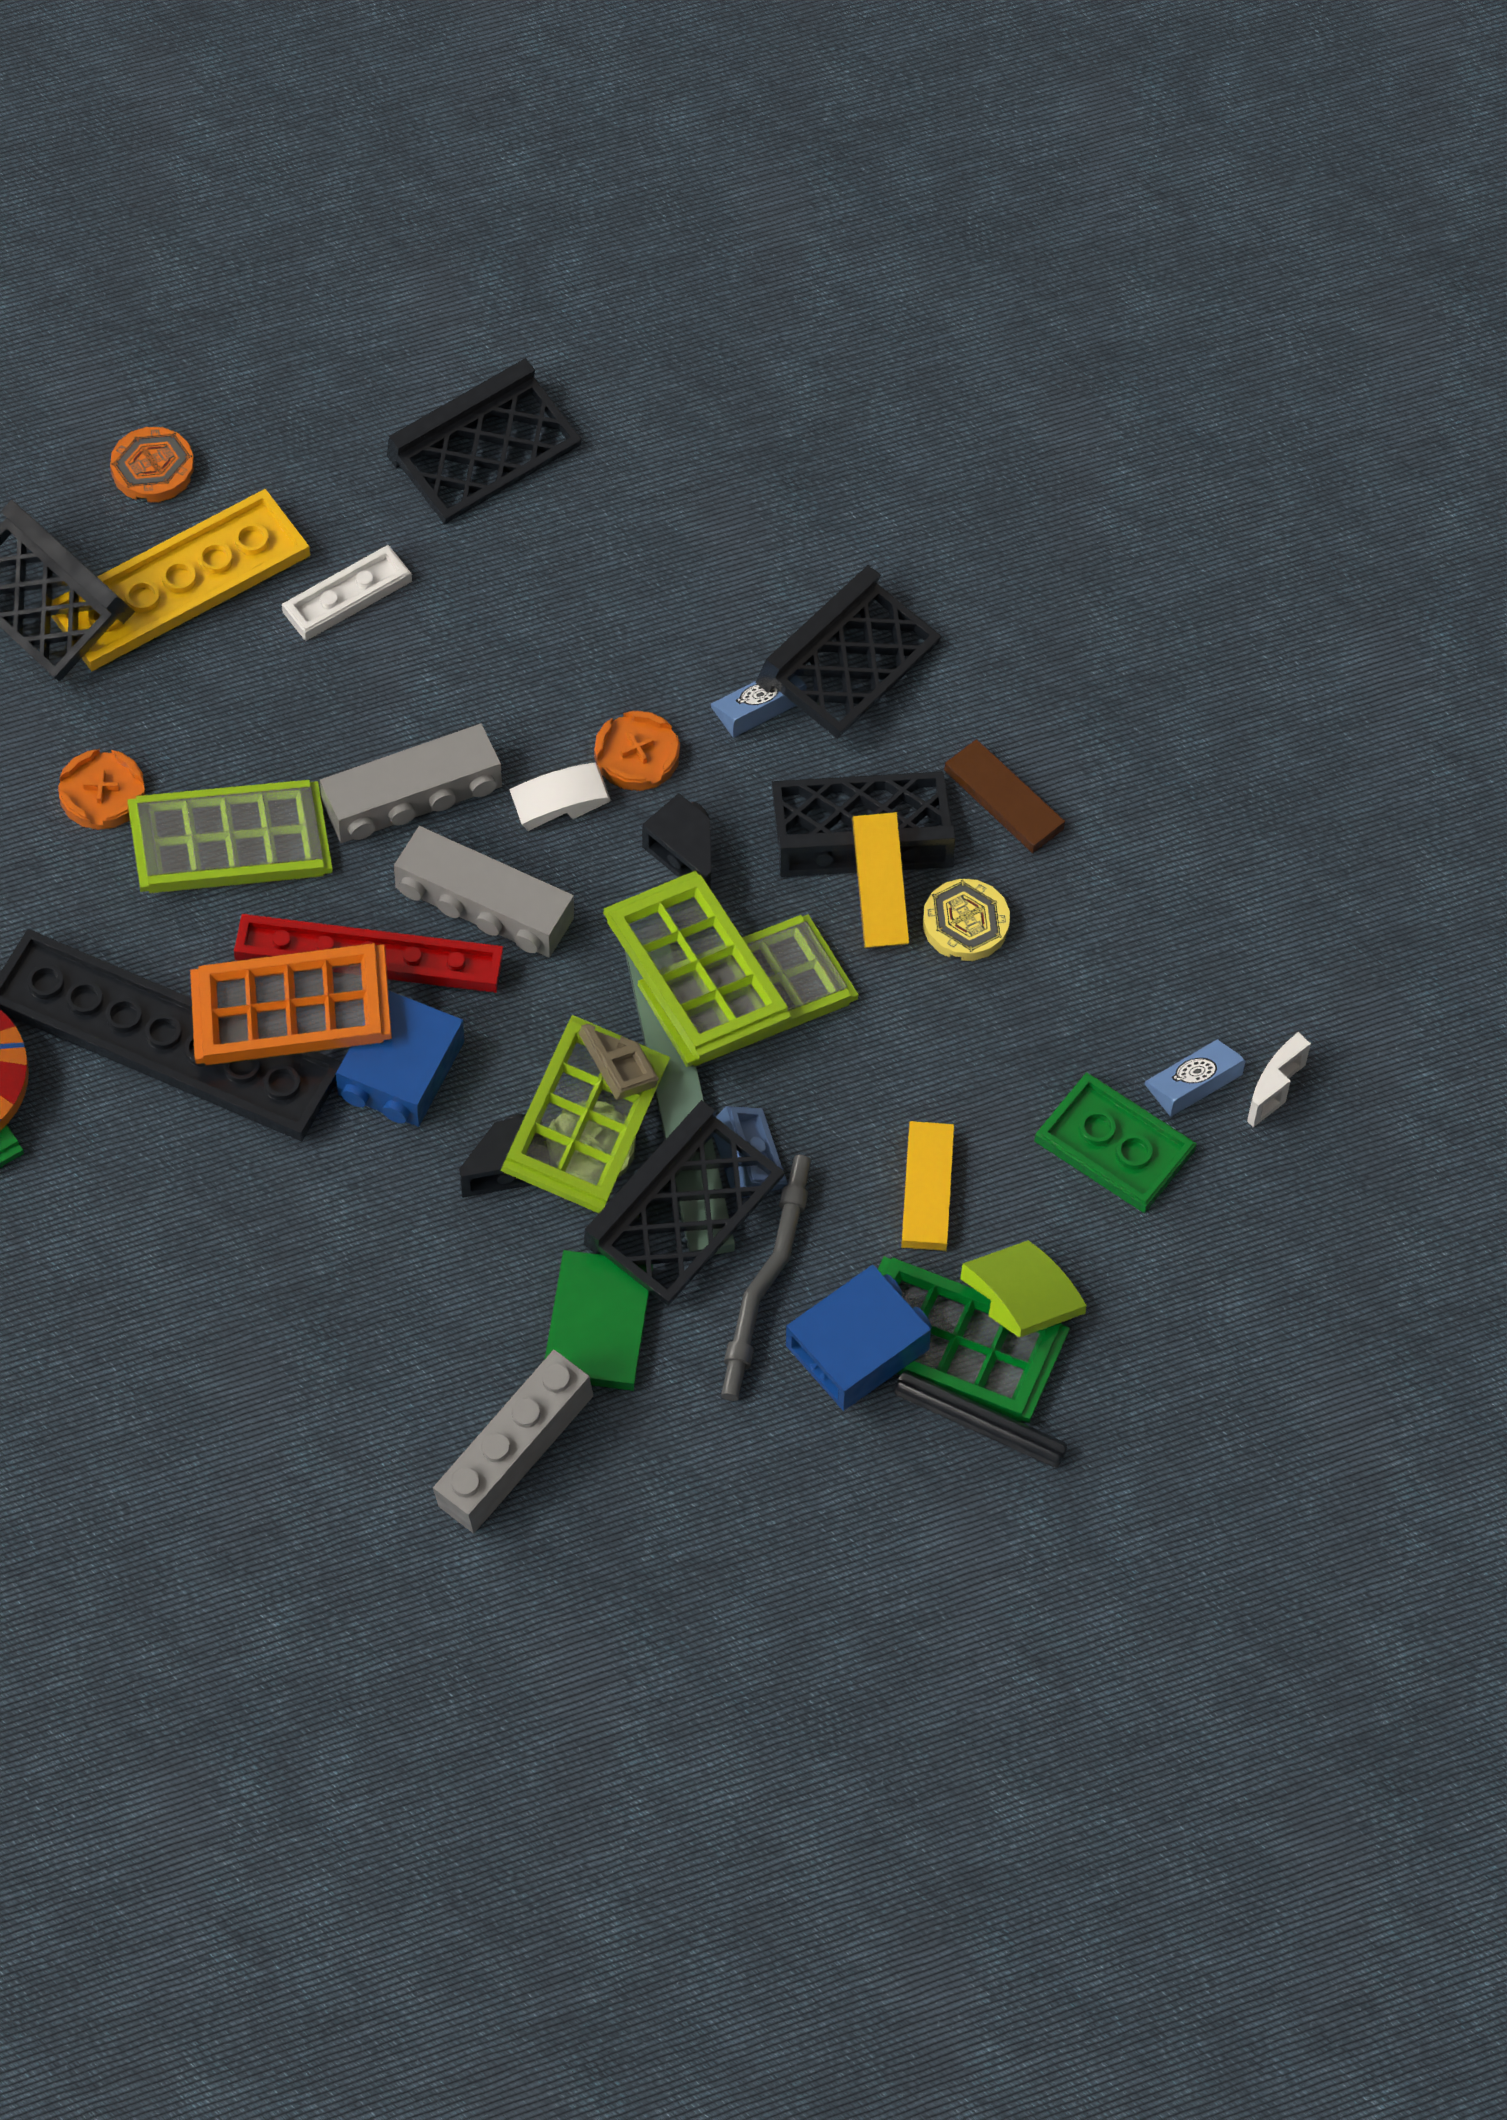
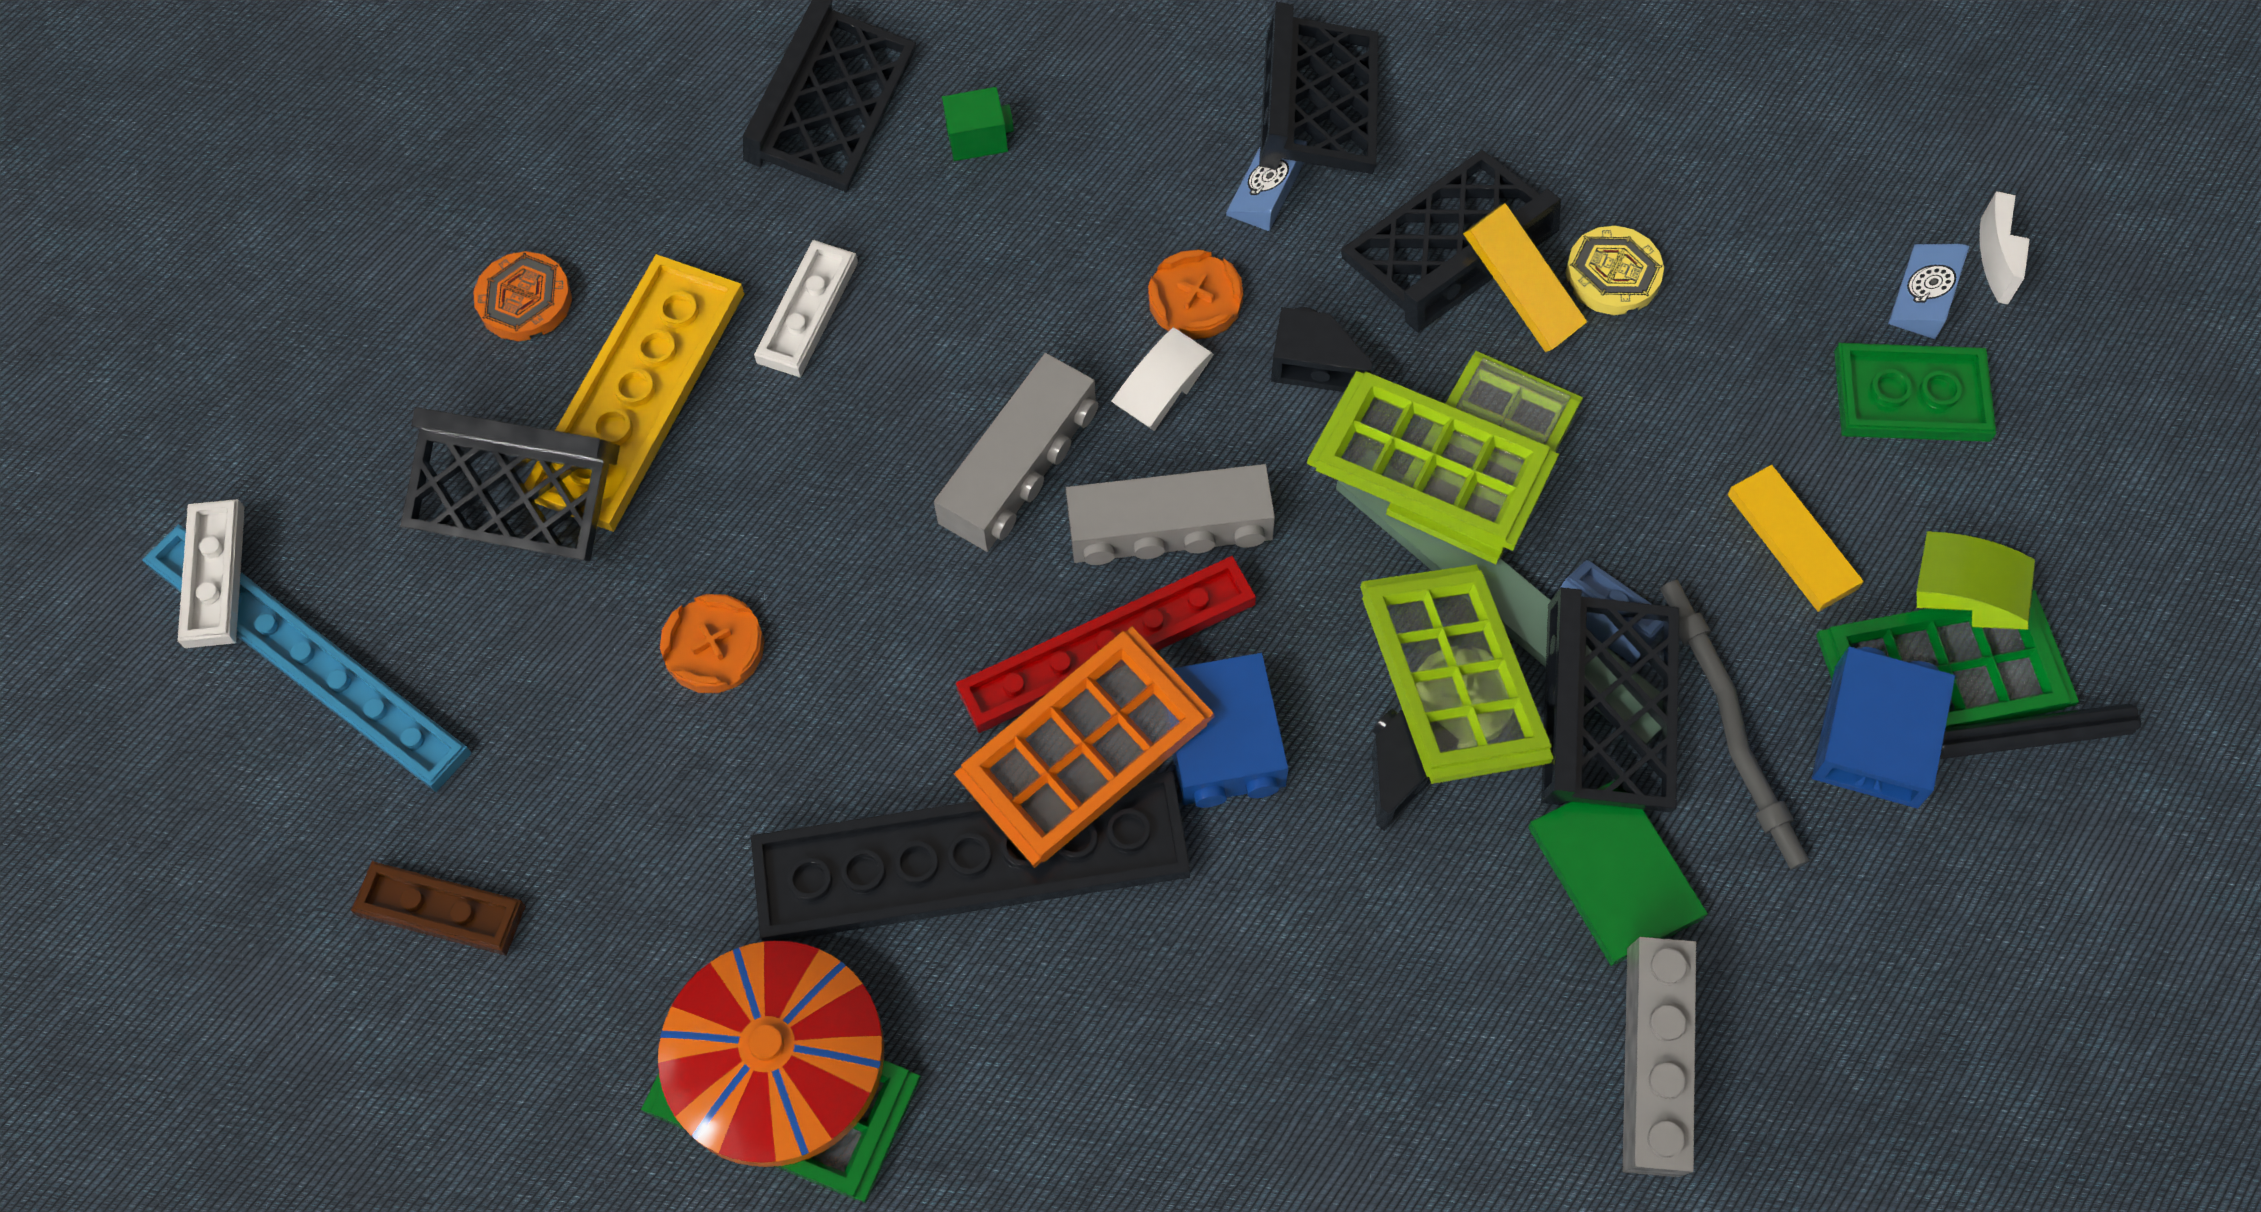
camera: 30 degrees left, 5 degrees up
(229, 836) = (877, 613): clear piece -> none
(573, 527) = (977, 123): none -> green brick
(619, 1062) = (1446, 599): dark tan tile -> none
(1004, 796) = (1551, 140): reddish brown tile -> none

